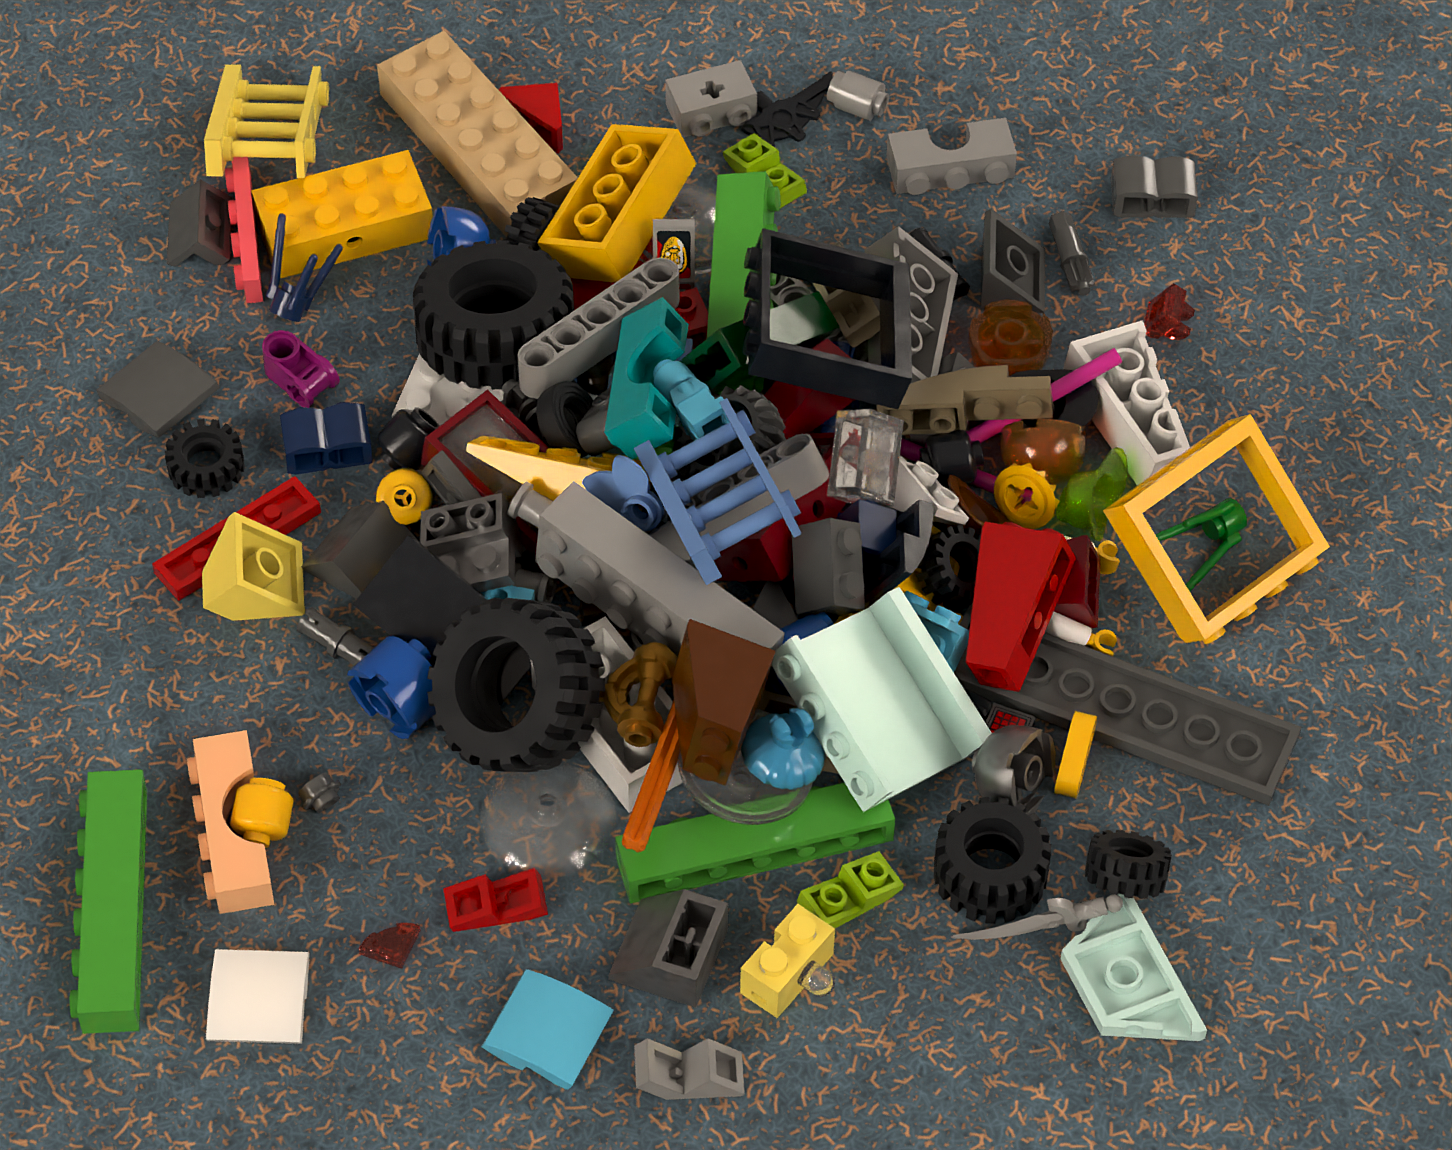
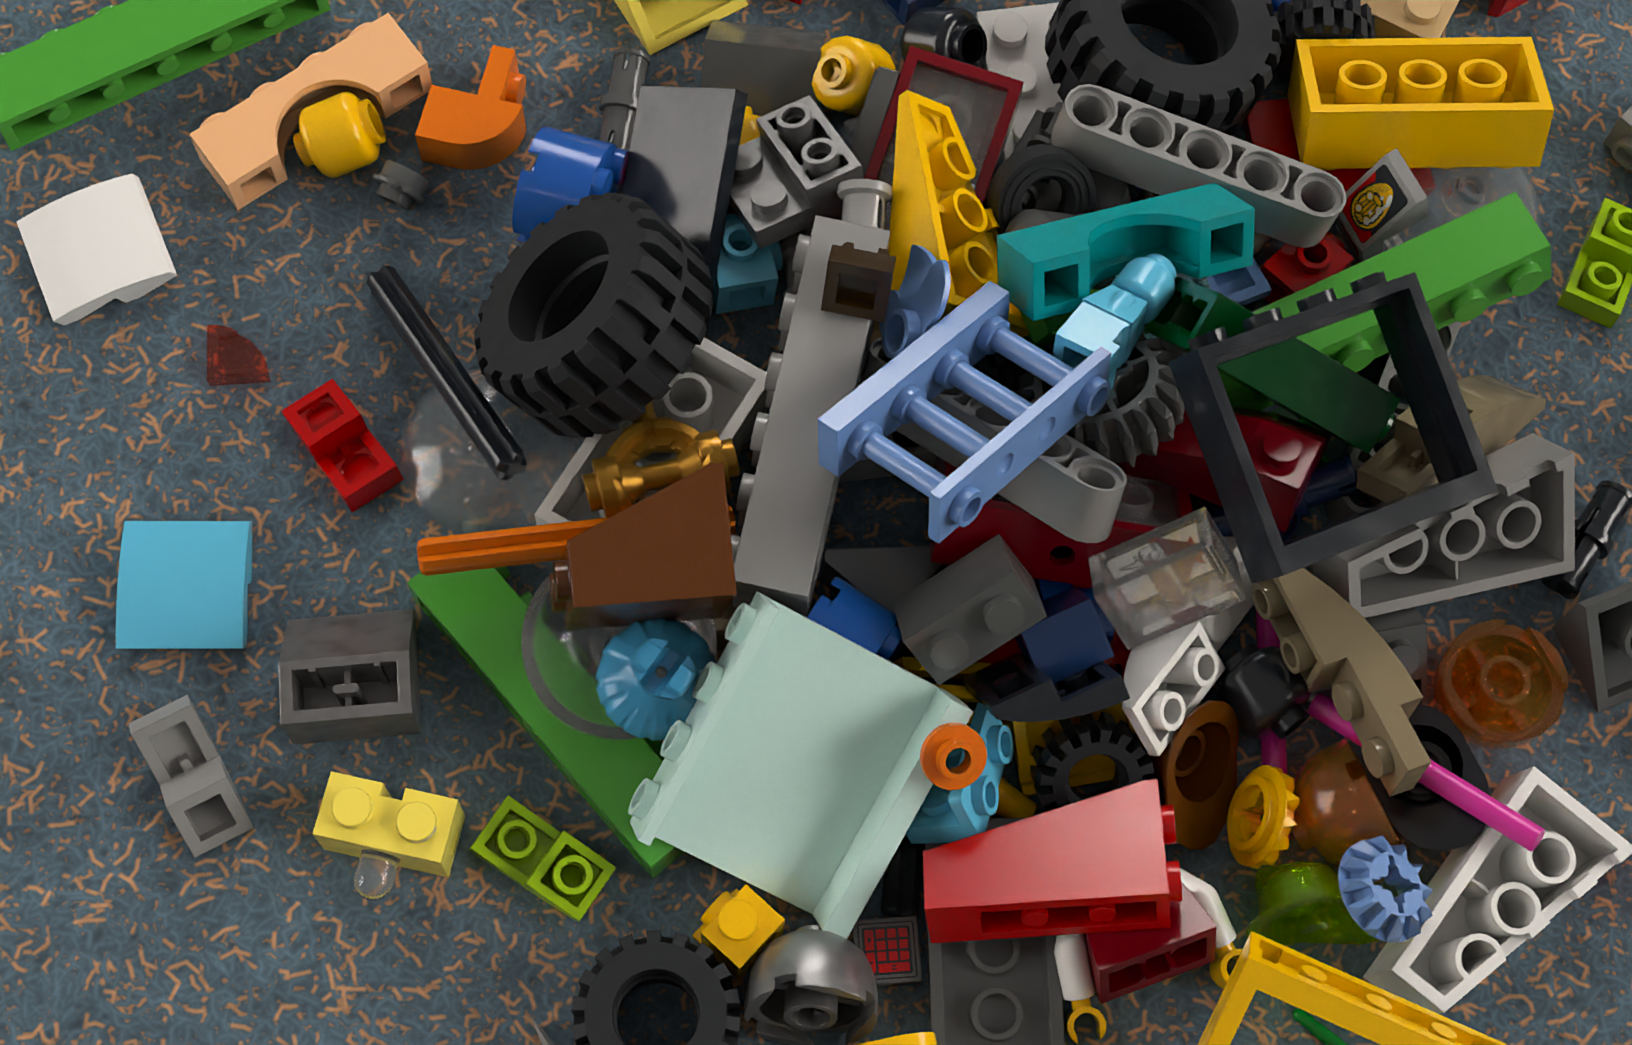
camera: 60 degrees right, 15 degrees up
(303, 728) = (477, 128): none -> orange brick
(487, 806) = (447, 373): none -> black axle
(605, 504) = (858, 282): none -> dark brown tile
(921, 608) = (940, 744): none -> orange plate
(953, 786) = (739, 928): none -> yellow brick
(1108, 442) = (1375, 908): none -> medium blue gear

